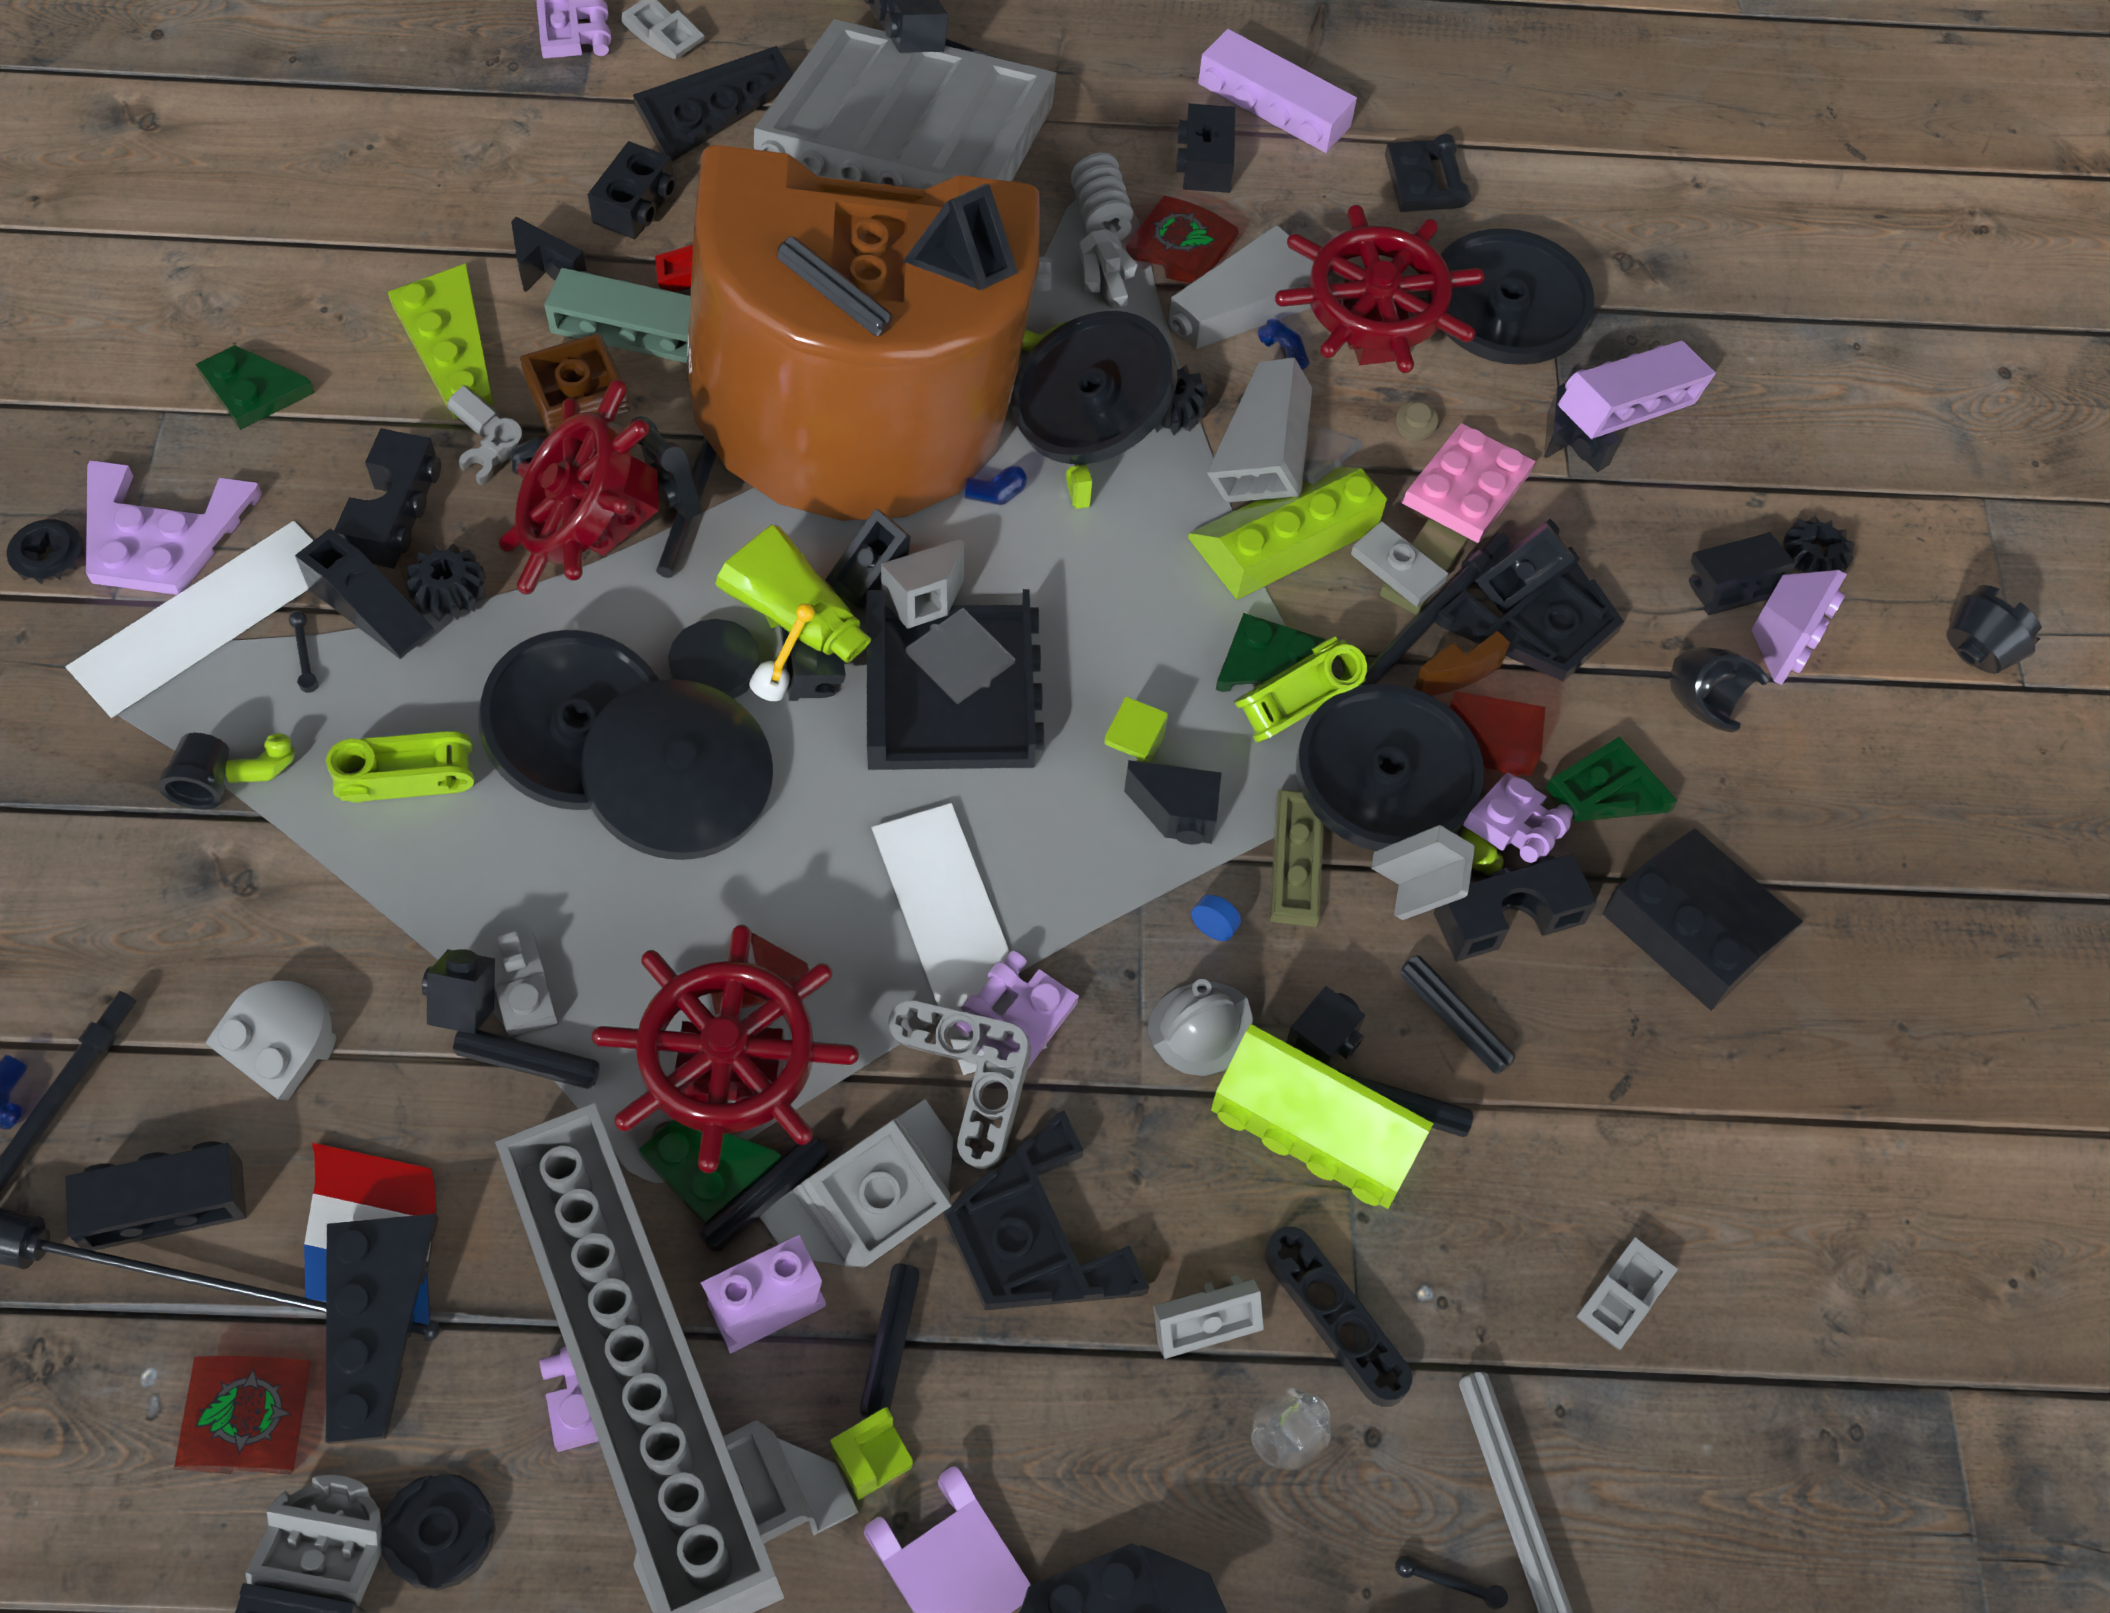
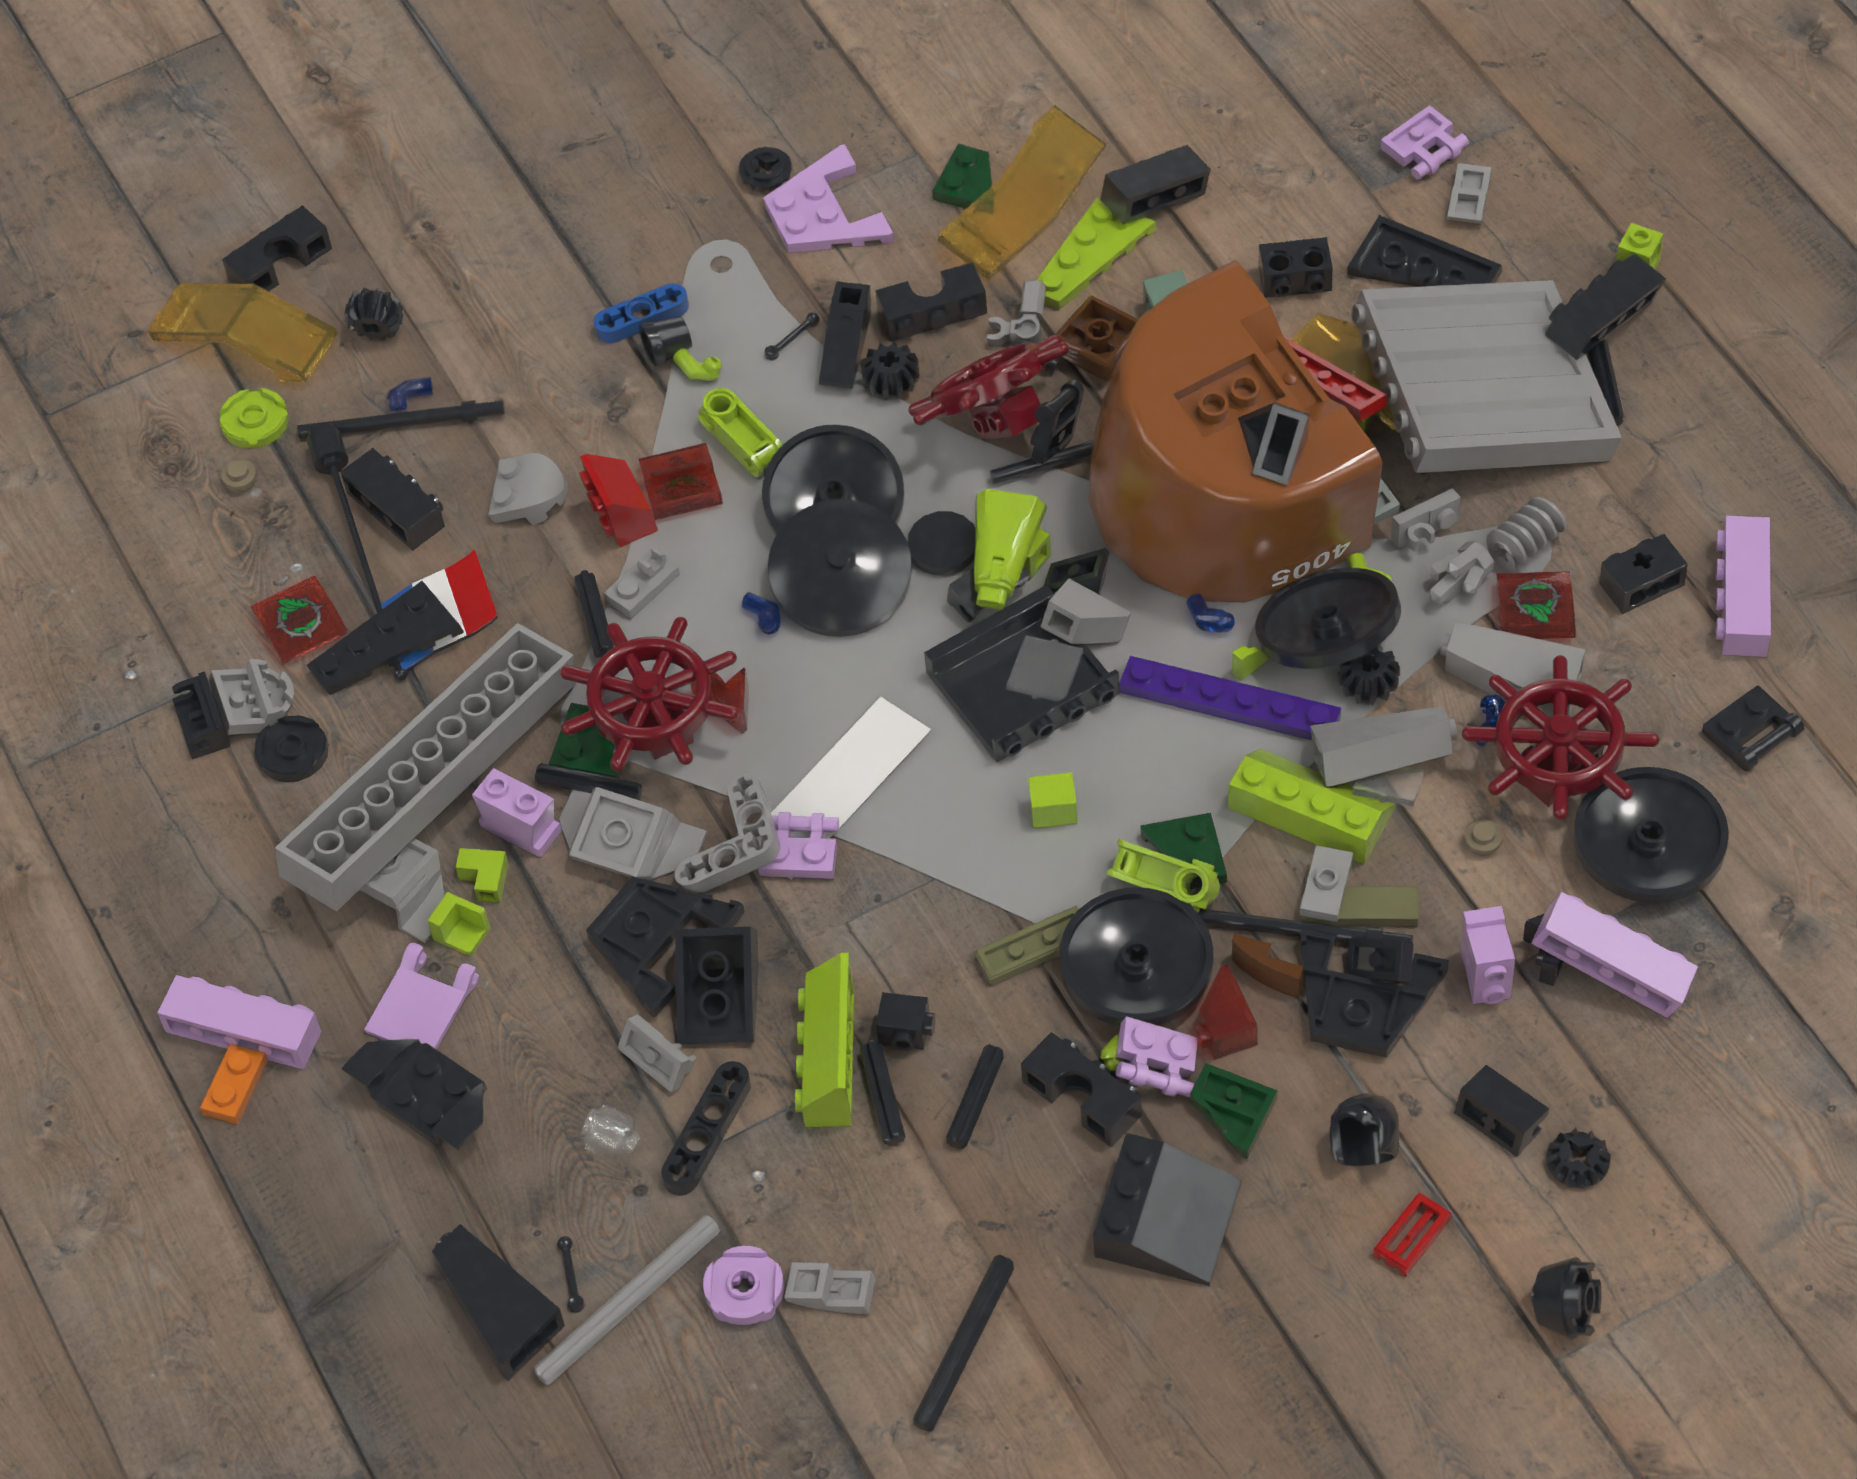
camera: 70 degrees right, 5 degrees down
(134, 798) = (615, 314): none -> blue beam
(194, 622) = (772, 271): white sticker -> none
(331, 336) = (1026, 195): none -> clear yellow windscreen
(387, 940) = (616, 498): none -> red slope
(409, 866) = (680, 481): none -> clear red slope
(424, 233) = (1155, 184): none -> black brick
(460, 990) = (608, 553): black brick -> none
(542, 253) = (1188, 251): black slope -> none
(671, 876) = (768, 612): none -> clear blue arm
(771, 677) = (952, 573): hinge -> none
(808, 1375) = (485, 868): none -> lime piece
(834, 286) = (1175, 392): black axle -> none
(890, 1339) = (537, 898): black axle -> none
(1108, 527) = (1225, 698): none -> dark purple plate
(1154, 1197) = (716, 984): none -> black slope
(1176, 799) = (1021, 851): black slope -> none
(1199, 1026) = (871, 950): light grey helmet -> none
(1216, 917) = (947, 918): blue tile -> none
(1429, 870) = (1068, 1010): light grey panel -> none
(1469, 482) = (1437, 891): bright pink plate -> none
(1578, 482) = (1487, 955): none -> lavender hips
(1609, 1380) = (750, 1306): none -> lavender plate
(1767, 1194) = (963, 1343): none -> black axle
(1796, 619) = (1468, 1162): lavender slope -> none
(1826, 722) = (1394, 1258): none -> red tile

